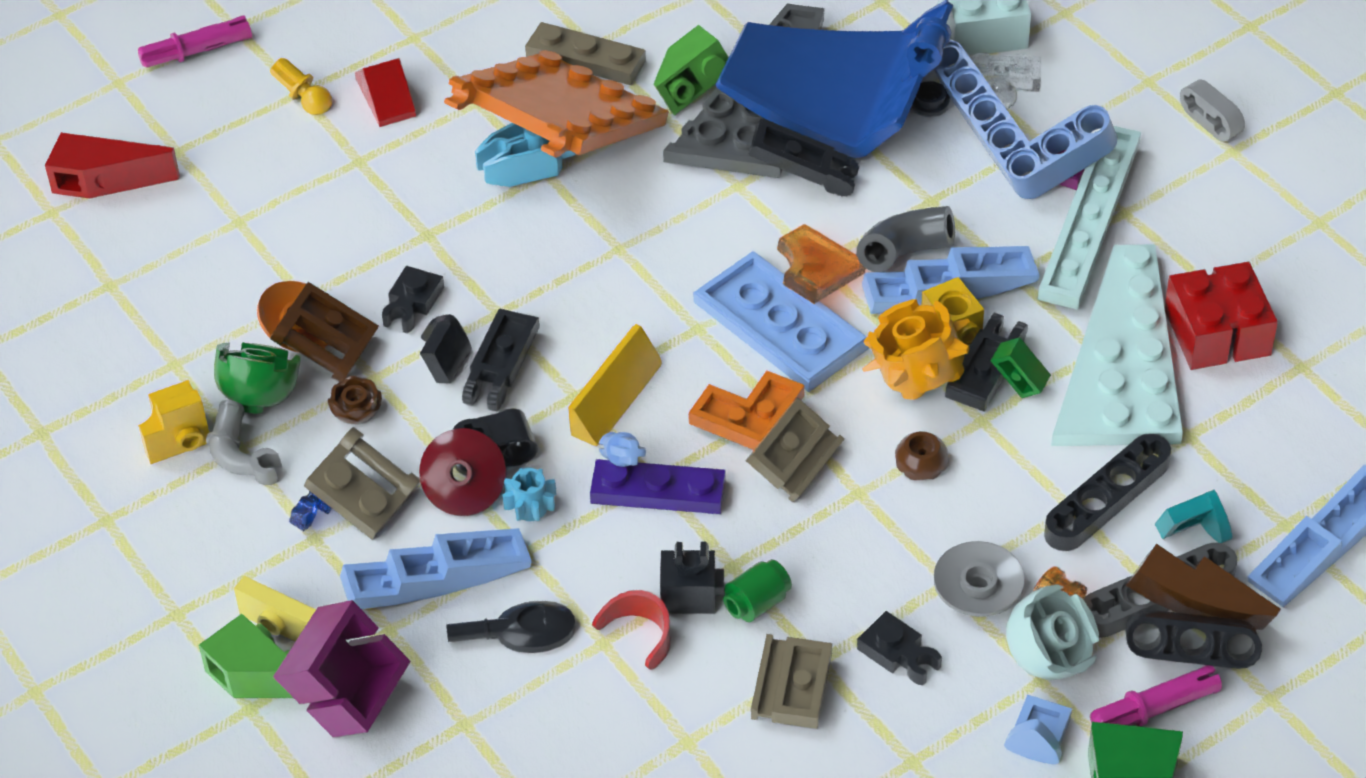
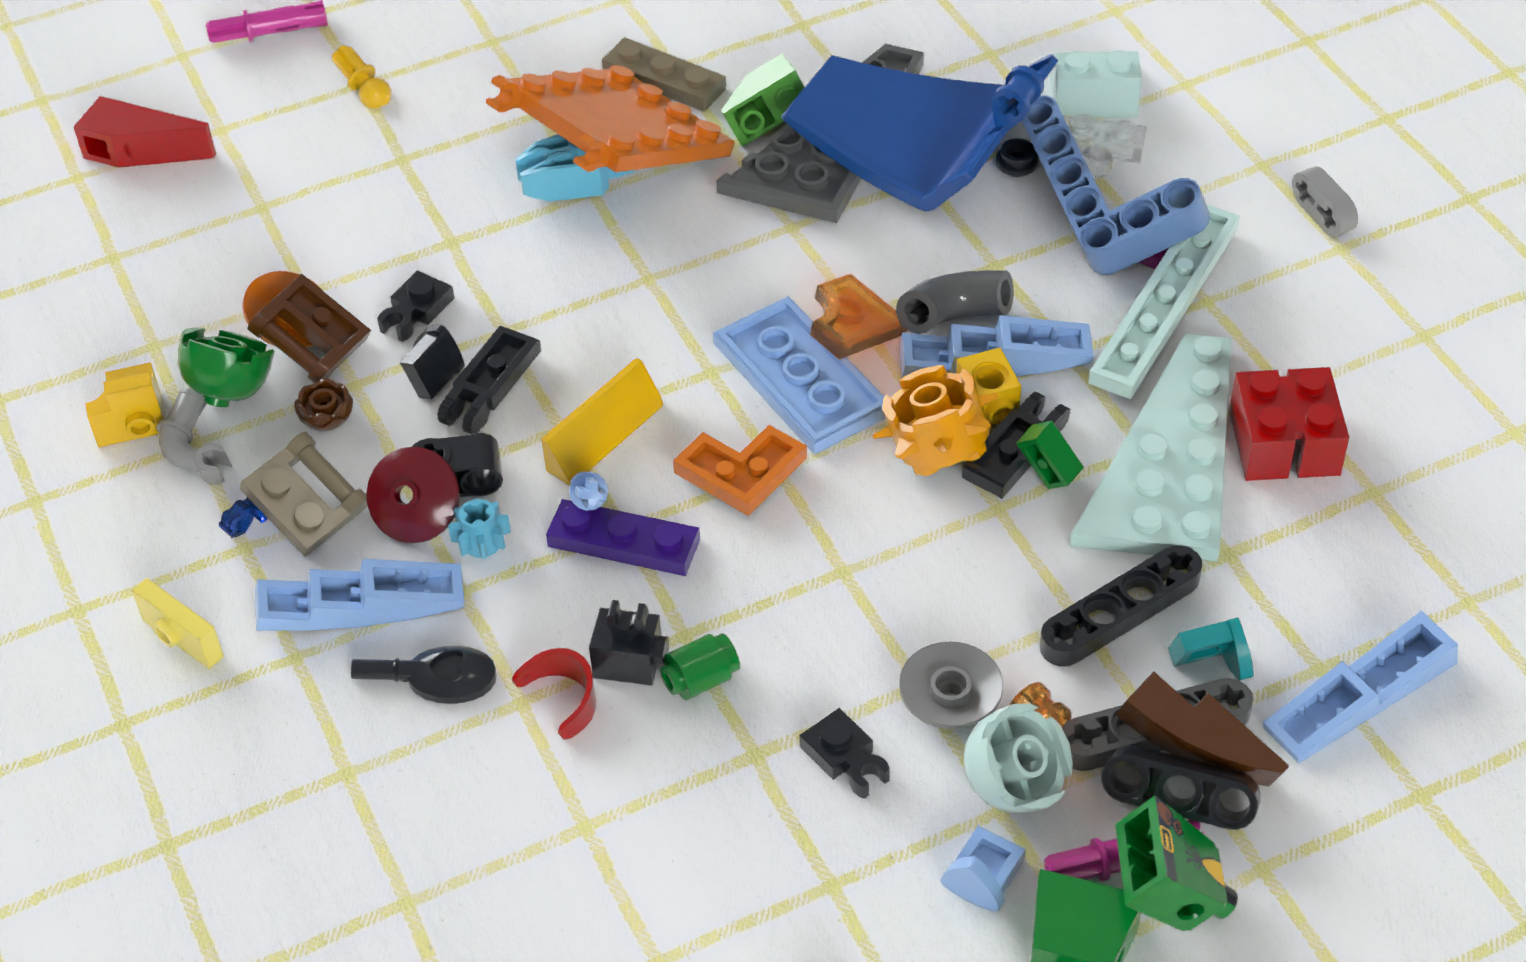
camera: 10 degrees right, 0 degrees up
(244, 660) = (130, 675): bright green slope -> none
(340, 678) = (213, 701): magenta piece -> none
(386, 92) = (446, 91): red slope -> none
(792, 681) = (714, 774): dark tan plate -> none
(794, 449) = (779, 515): dark tan plate -> none
(804, 157) = (864, 203): black hinge -> none
(921, 456) = (920, 539): reddish brown plate -> none
(1200, 705) = (1171, 868): none -> green torso

